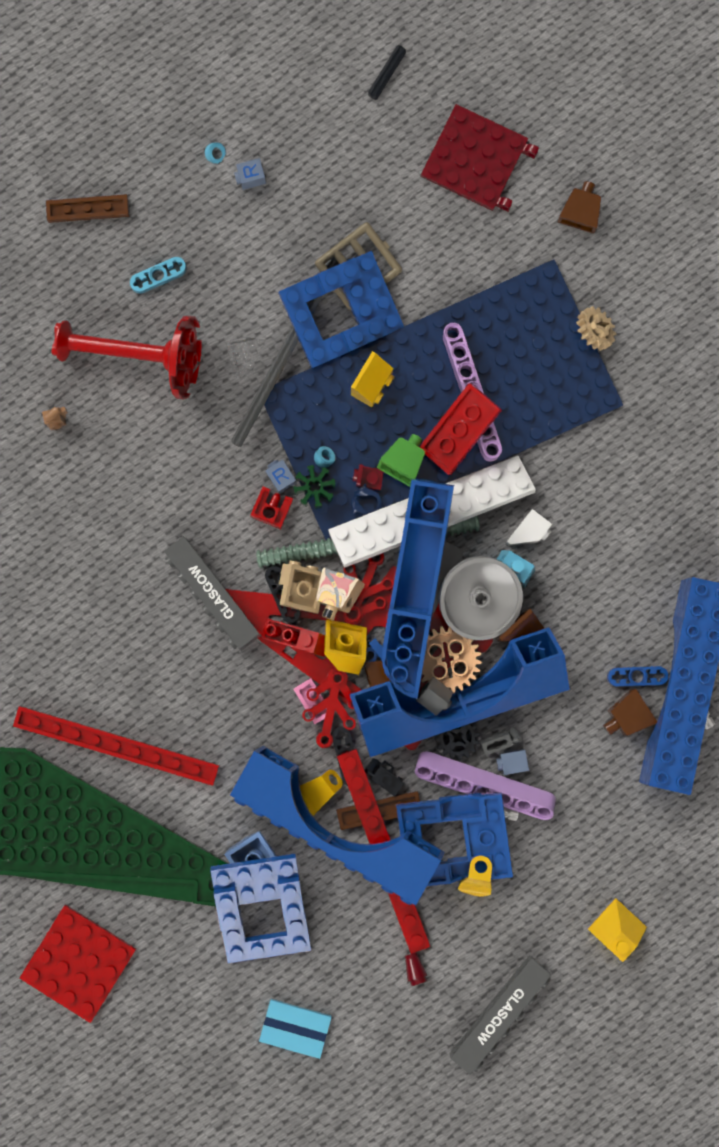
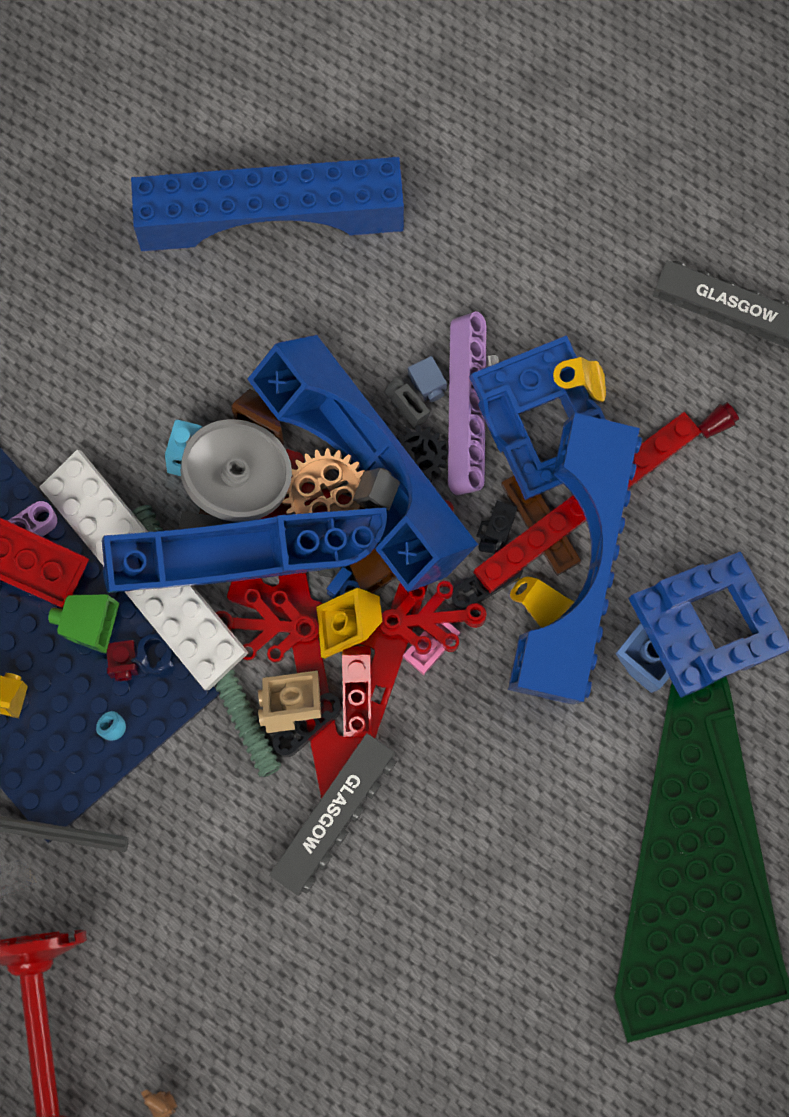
camera: 100 degrees left, 10 degrees down
(116, 745) = (570, 881): red plate -> none
(261, 506) = (202, 762): red brick -> none
(280, 475) = (151, 776): sand blue brick -> none
(313, 480) = (145, 730): dark green gear -> none
(337, 592) = (282, 652): torso -> none
(530, 530) = (130, 443): white slope -> none
(618, 929) = (587, 203): yellow slope -> none
(629, 715) = (325, 261): reddish brown torso -> none
(652, 670) = (276, 248): blue beam -> none

